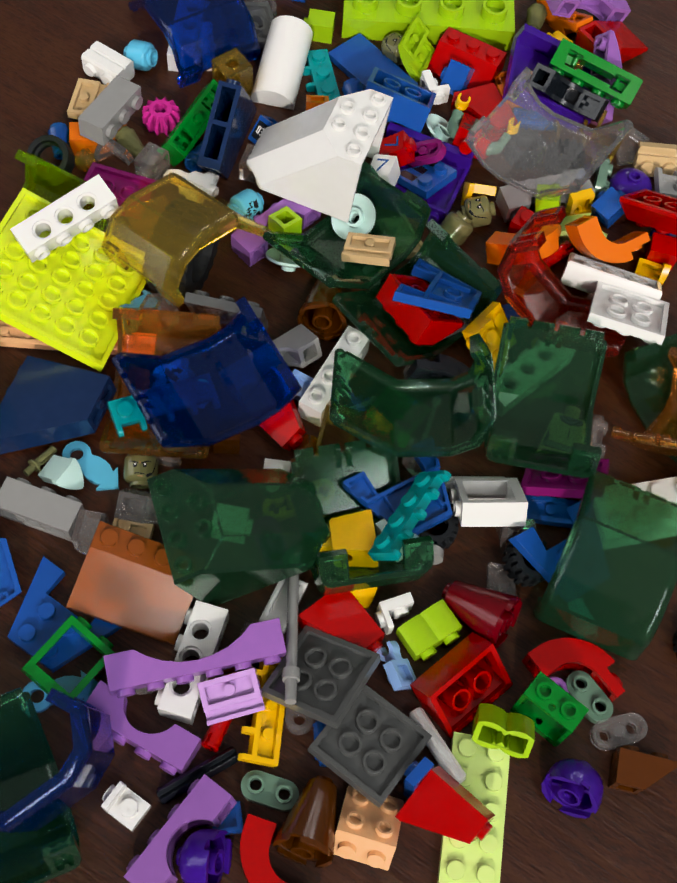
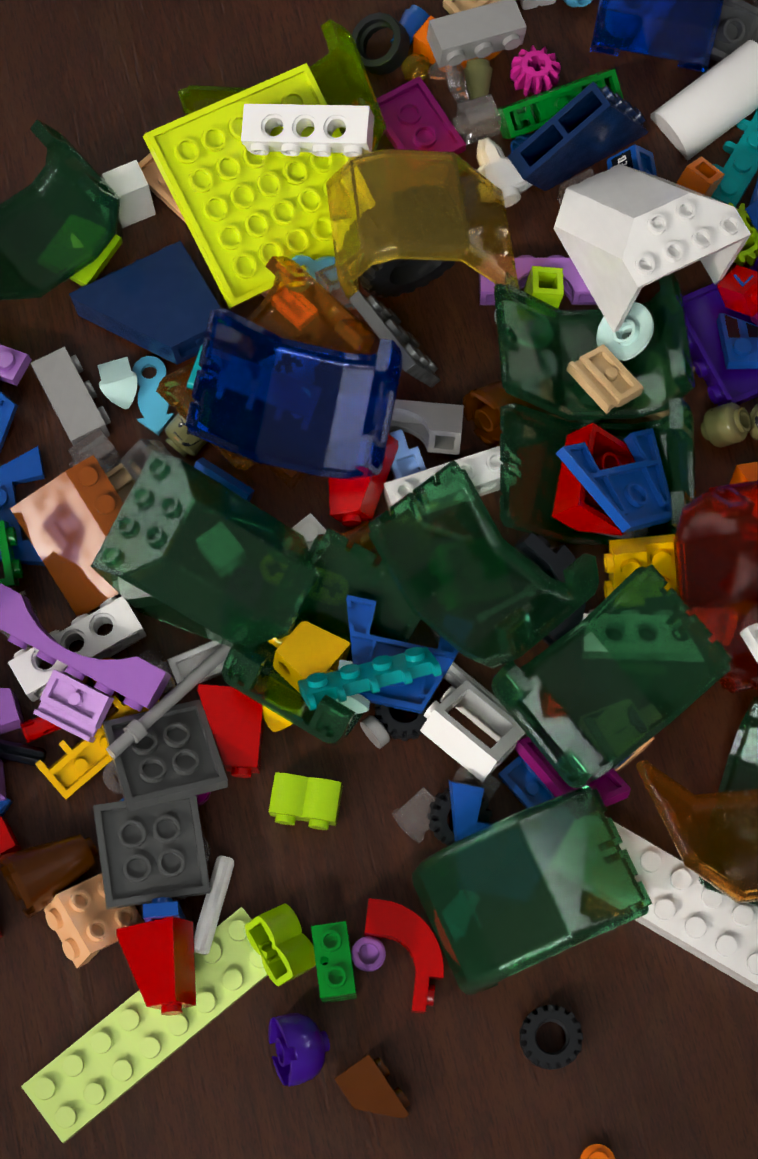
camera: 50 degrees right, 10 degrees up
(34, 465) = (111, 353): olive piece -> none
(227, 67) = (648, 76): clear yellow piece -> none
(249, 202) = (530, 236): medium azure head -> none
(268, 793) = (42, 813): sand green plate -> none
(386, 167) = (705, 305): white brick -> none
(396, 607) = (295, 752): white bracket -> none
(398, 670) = (243, 810): light blue plate -> none
(461, 682) = (288, 870): red slope -> none
(483, 609) = (370, 826): dark red cone -> none
(589, 696) = (395, 987): sand green plate -> none
(599, 430) = (663, 750): clear plate -> none
(616, 731) = (391, 1038): clear plate -> none

